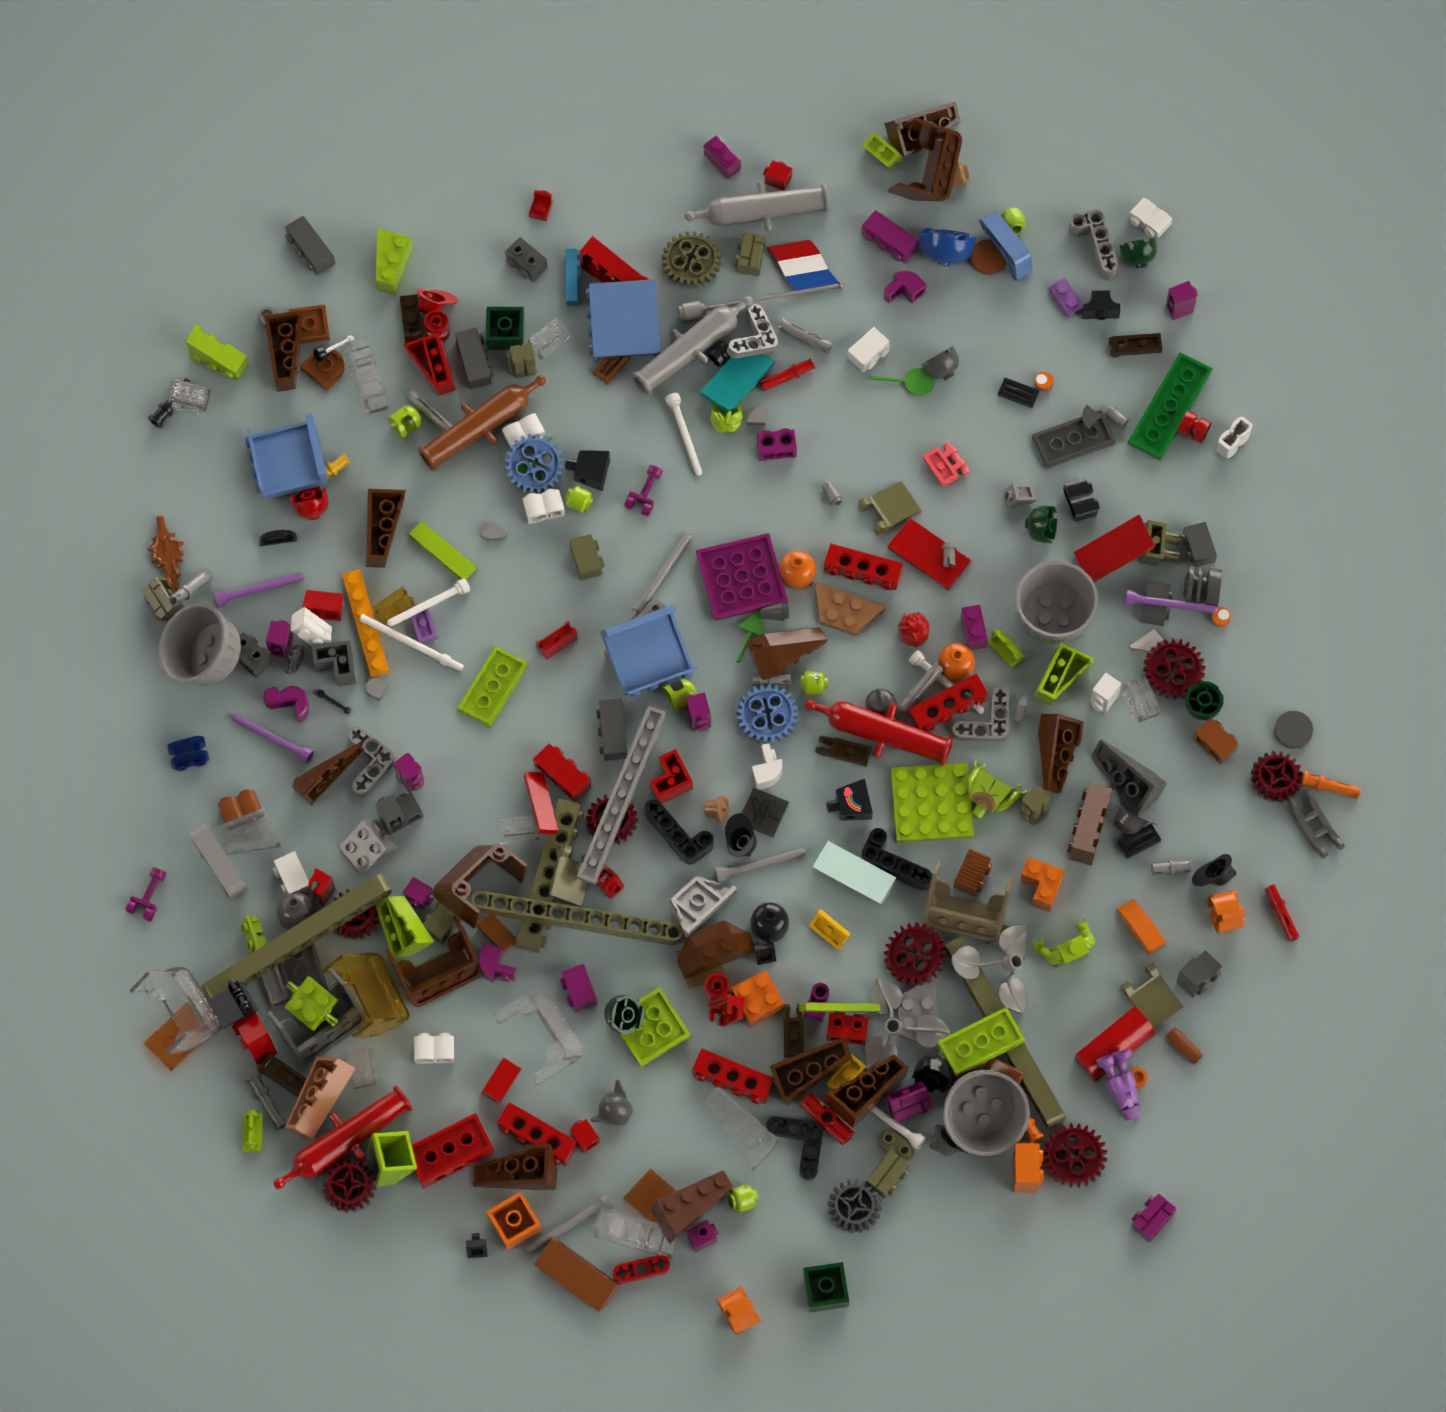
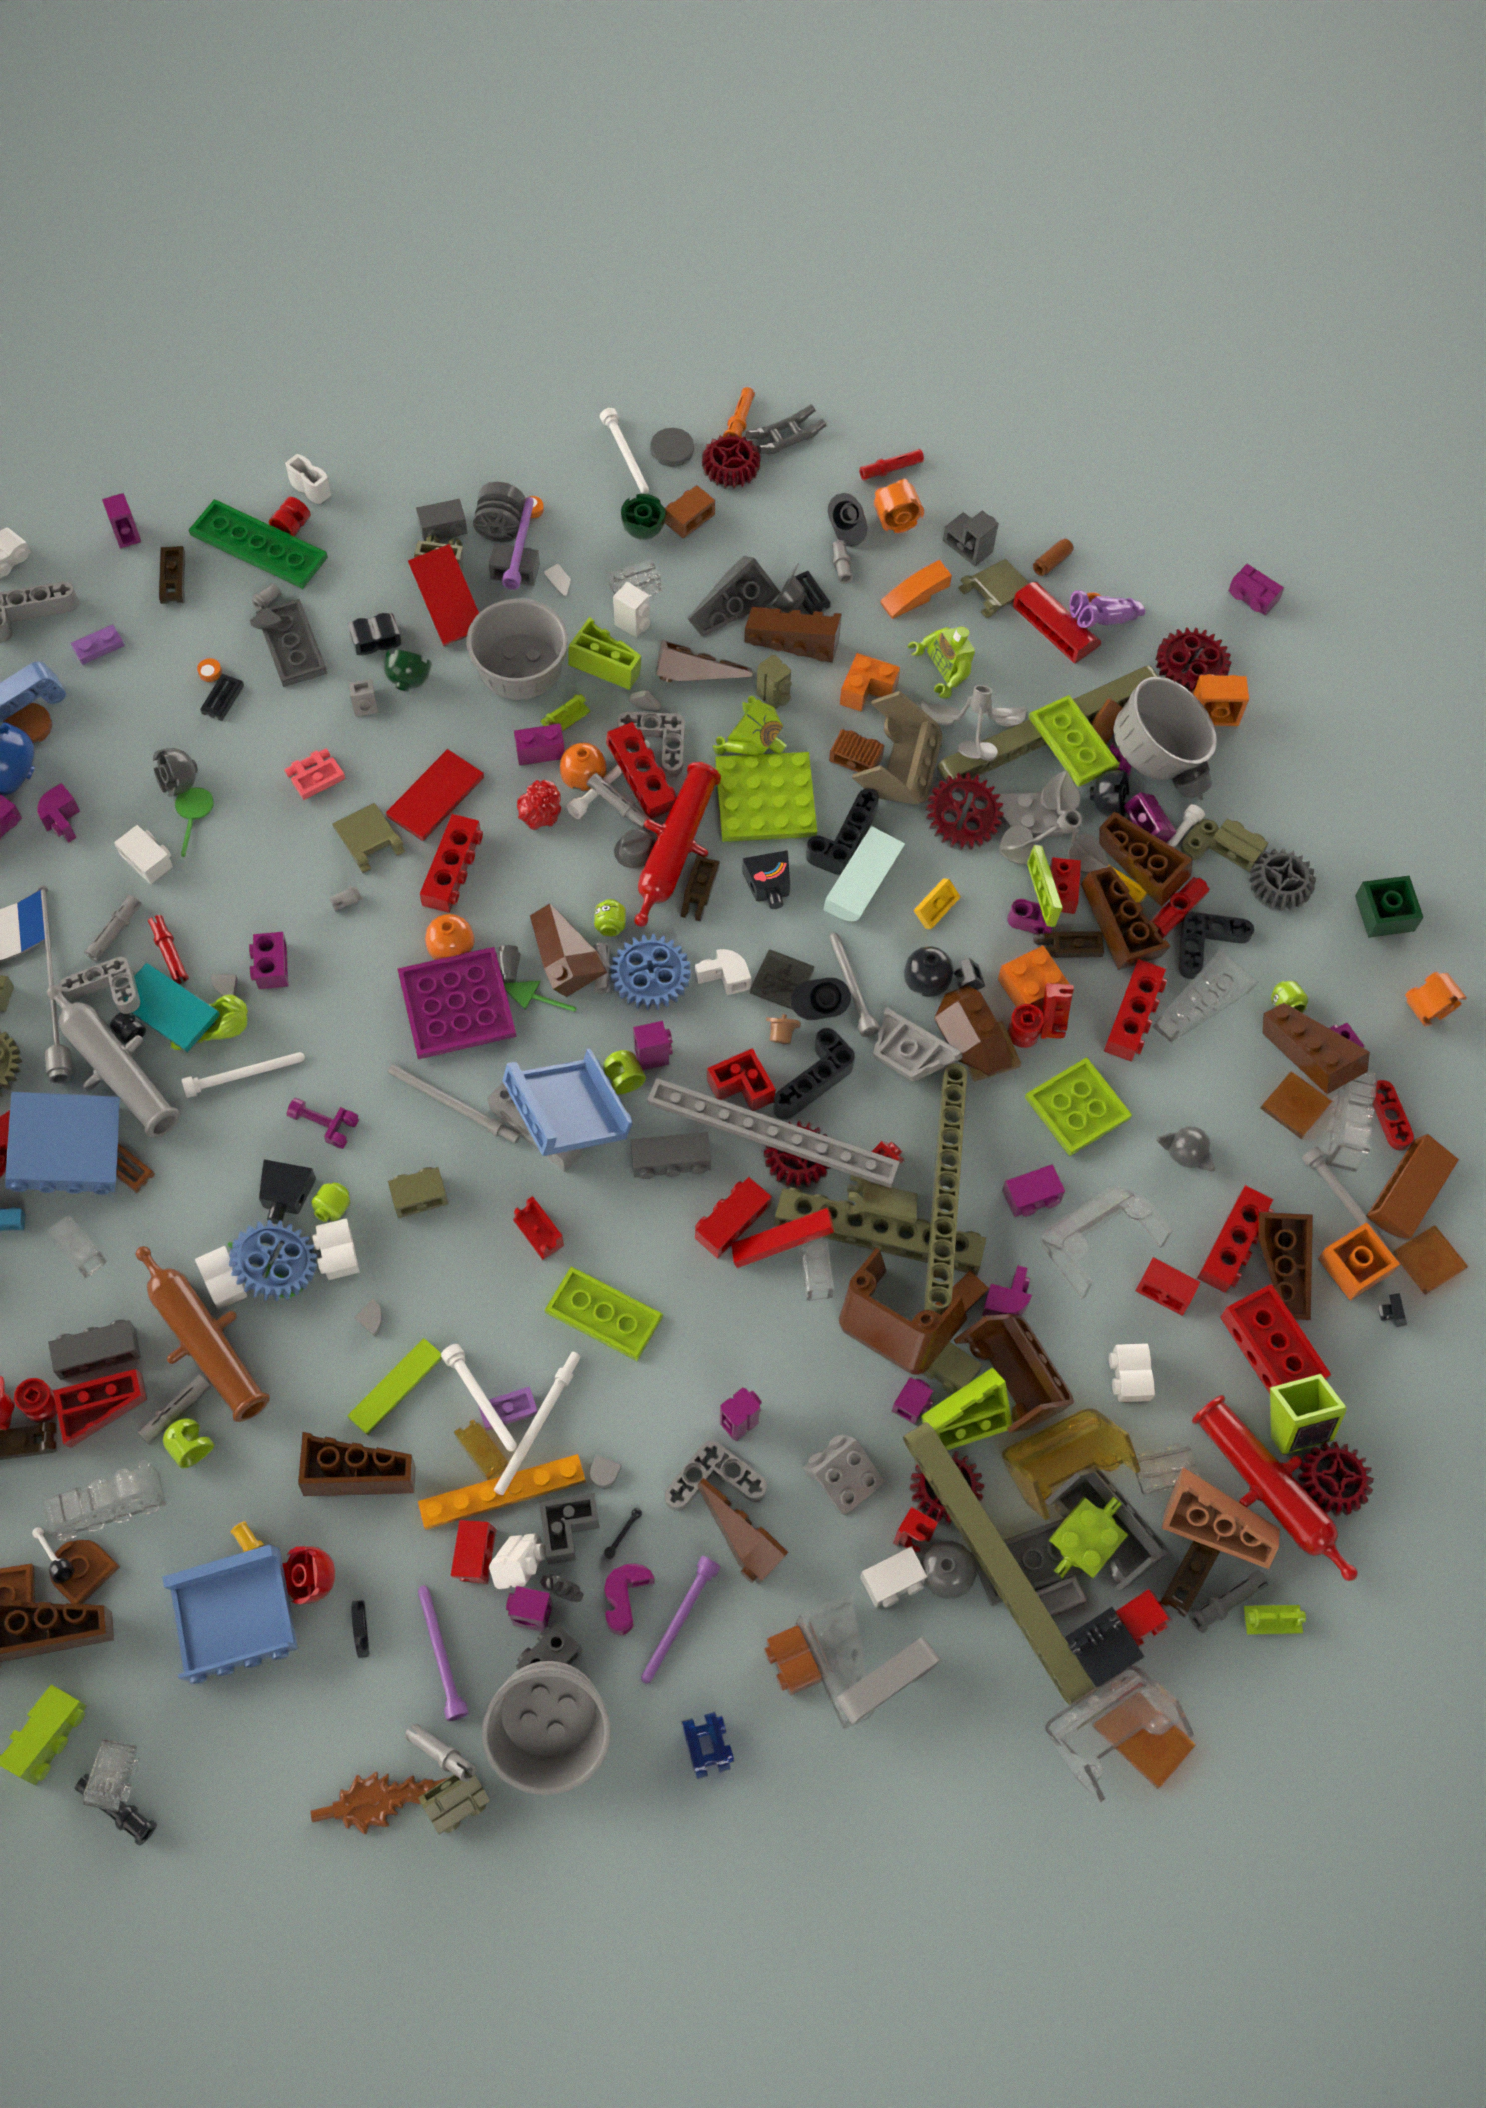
camera: 95 degrees left, 5 degrees down
(157, 875) = (902, 1783): magenta bar -> none
(252, 927) = (998, 1627): lime hinge -> none
(399, 812) = (797, 1429): dark grey brick -> none
(504, 327) = (53, 1303): dark green brick -> none
(519, 1282) = (1430, 1259): none -> clear orange tile
(522, 360) = (110, 1276): olive brick -> none
(584, 1135) = (1230, 1181): red brick -> none
(624, 1014) = (1075, 1127): dark green cylinder -> none
(844, 610) = (507, 888): medium nougat wing -> none
(949, 554) = (441, 766): light grey pin -> none
(1101, 306) = (115, 605): black brick -> none
(1139, 252) = (48, 562): dark green cylinder -> none
(1158, 661) = (597, 549): dark red gear -> none
(1320, 677) = (610, 419): none -> white piece

